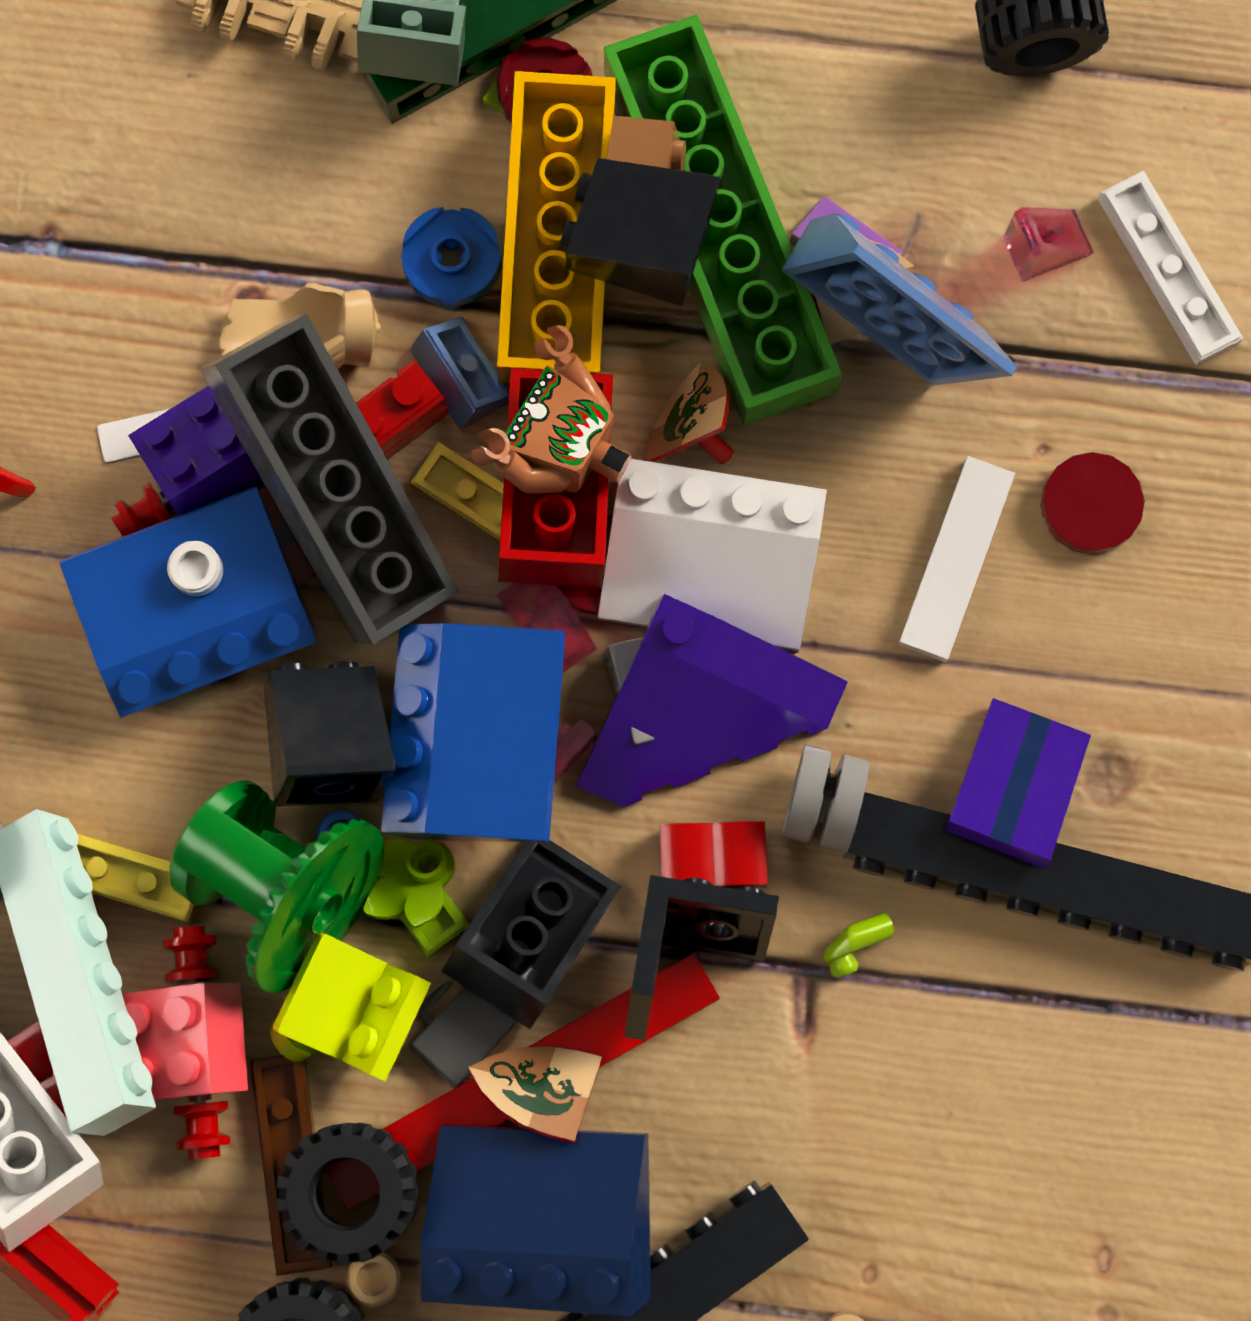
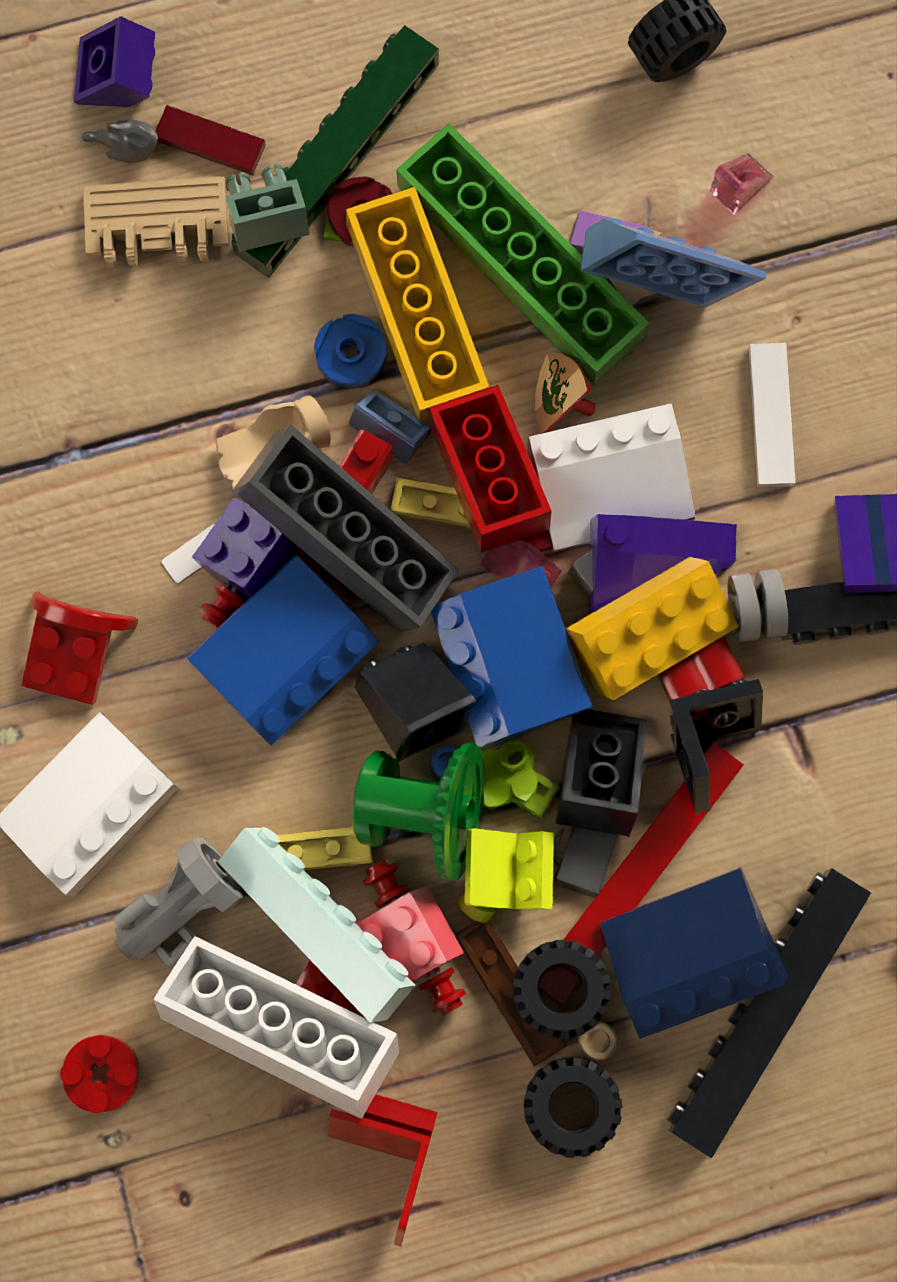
camera: 20 degrees left, 0 degrees up
(195, 568) = (281, 625): white tile -> none
(539, 1087) = (654, 869): shield -> none
(558, 429) = (483, 433): nougat torso -> none
(640, 227) = (479, 279): black slope -> none
(646, 142) = (457, 228): medium nougat brick -> none
(674, 770) = (652, 627): none -> yellow brick
(853, 938) = (813, 689): lime arm -> none
(1092, 503) = (844, 342): dark red tile -> none
(1170, 268) = (827, 166): white tile -> none

